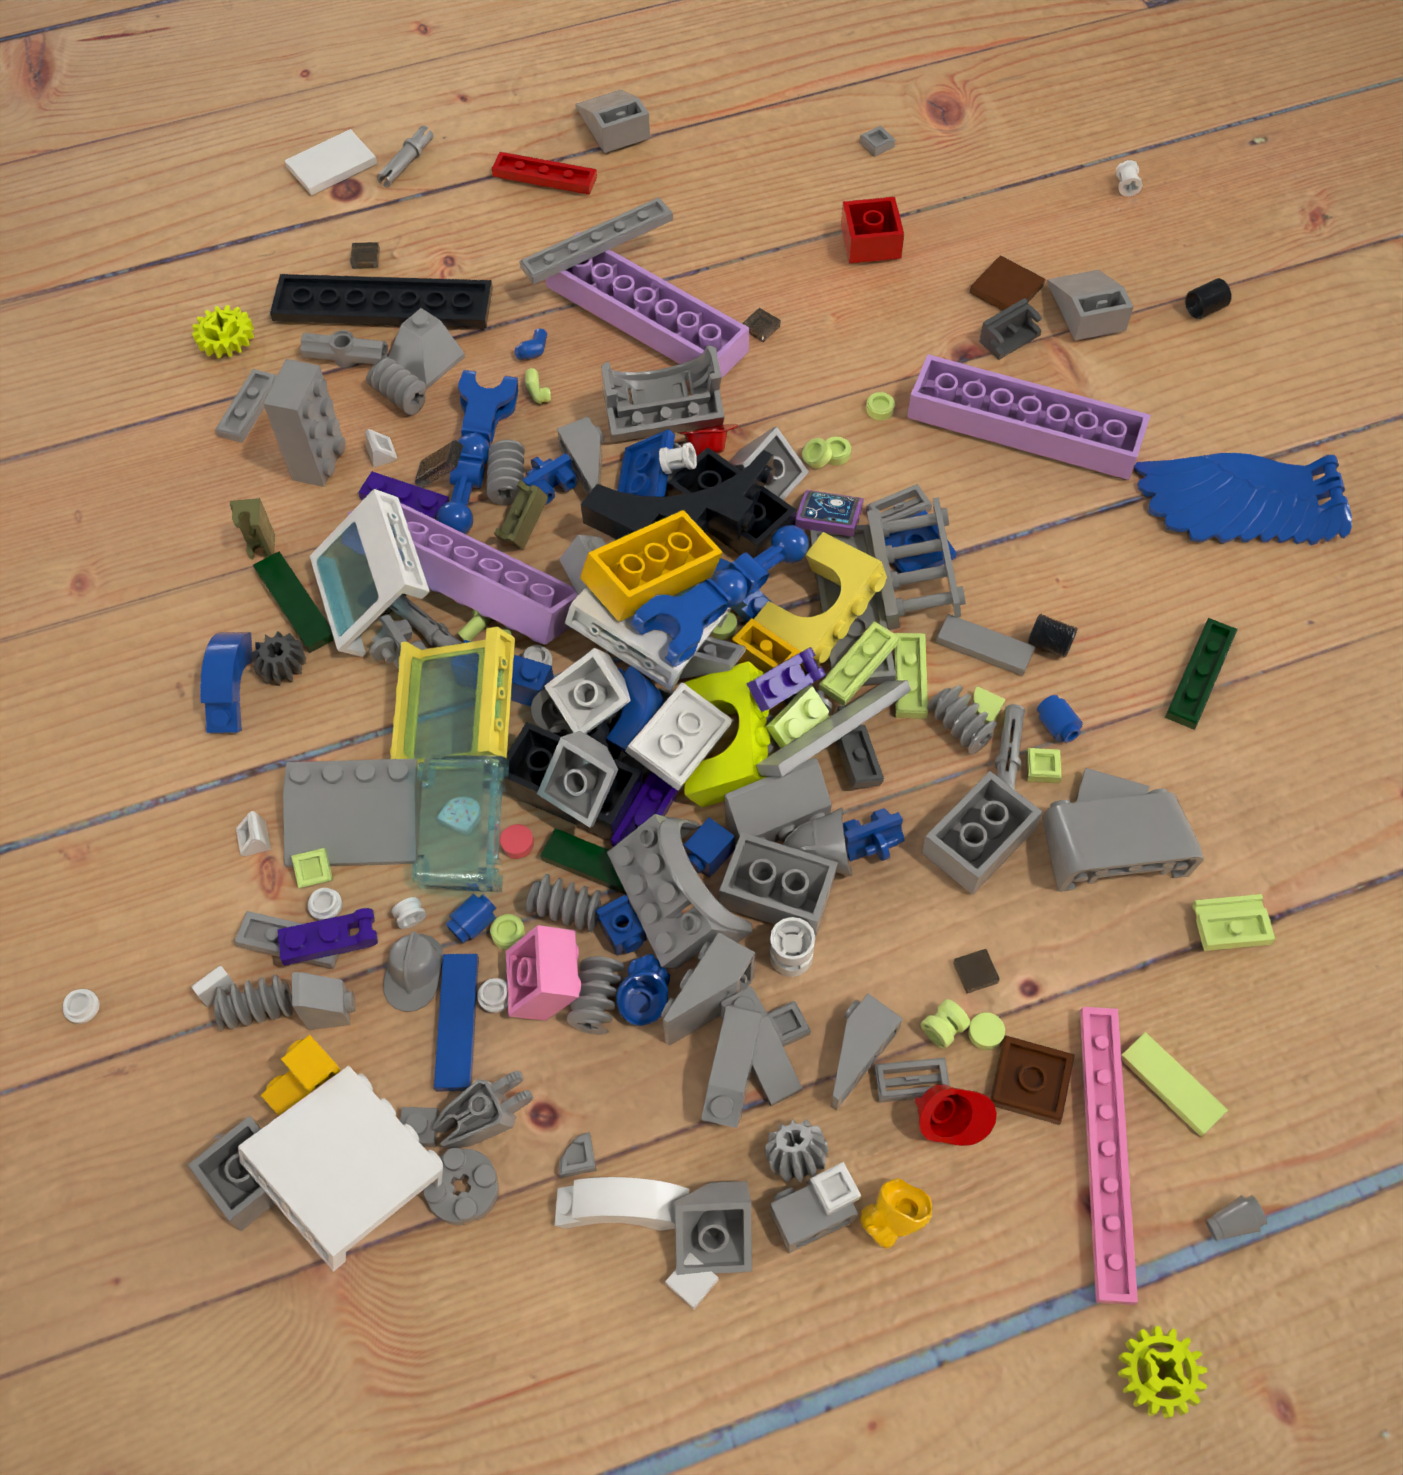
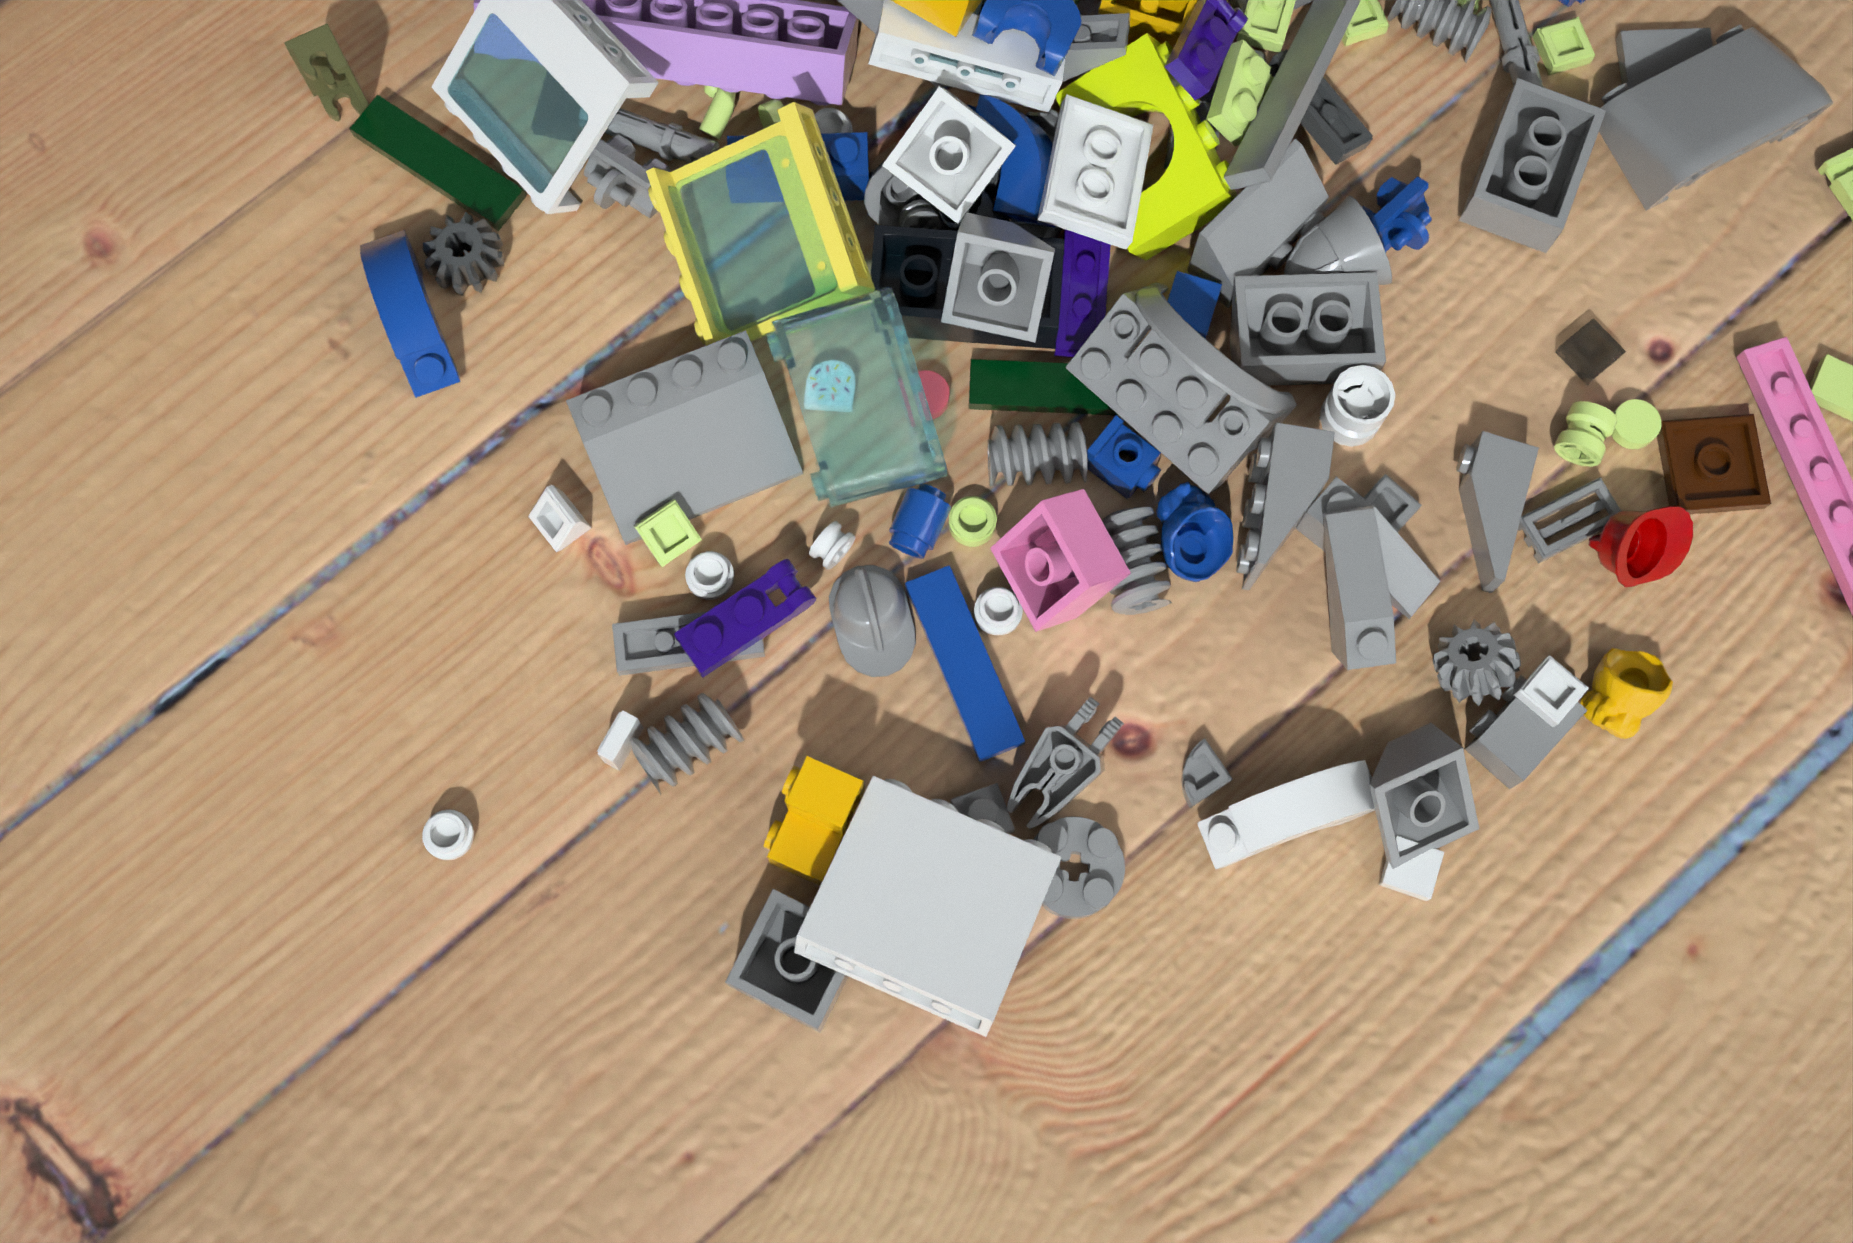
camera: 25 degrees left, 15 degrees up
(321, 1000) = (783, 704): light grey slope -> none

